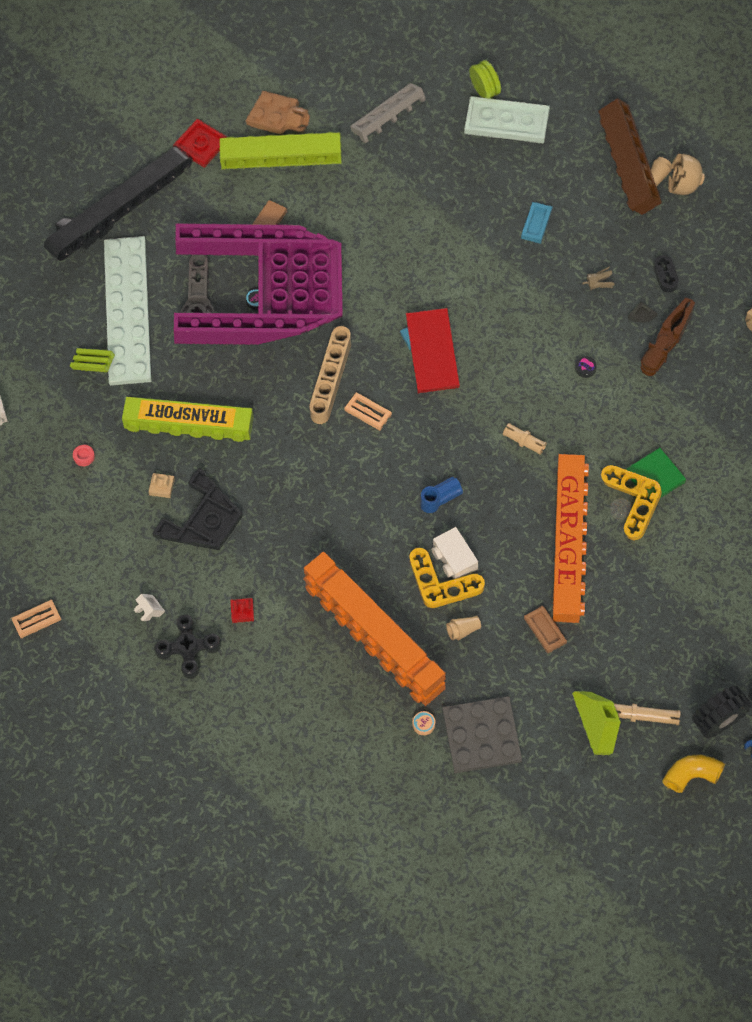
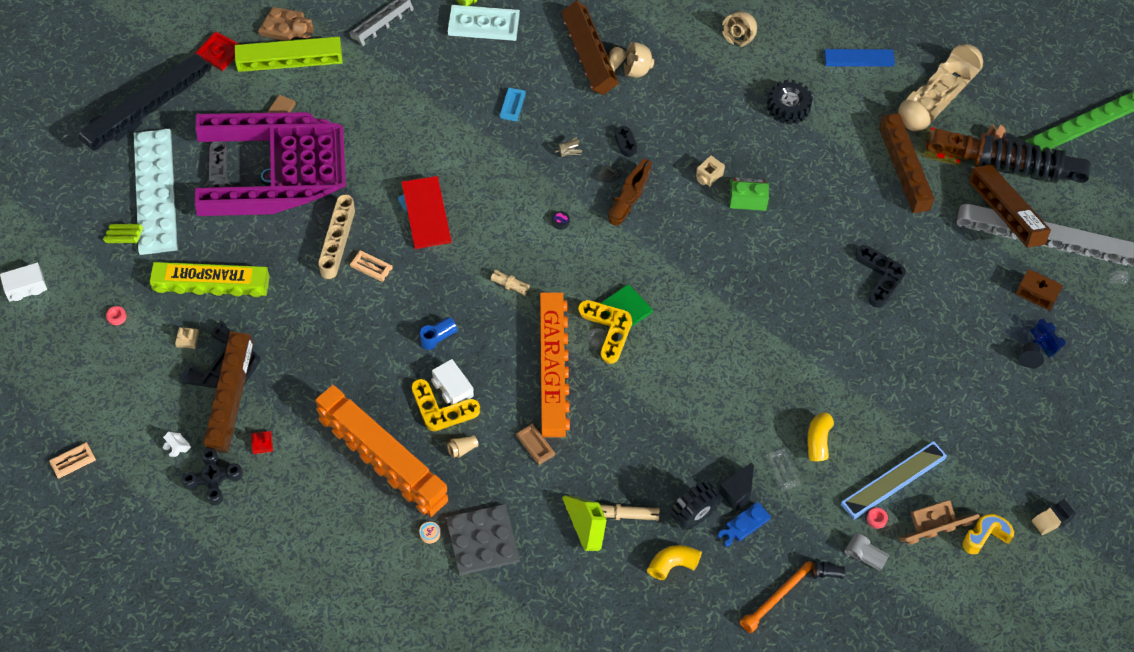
camera: 10 degrees left, 5 degrees down
(208, 552) = (229, 392): none -> reddish brown brick

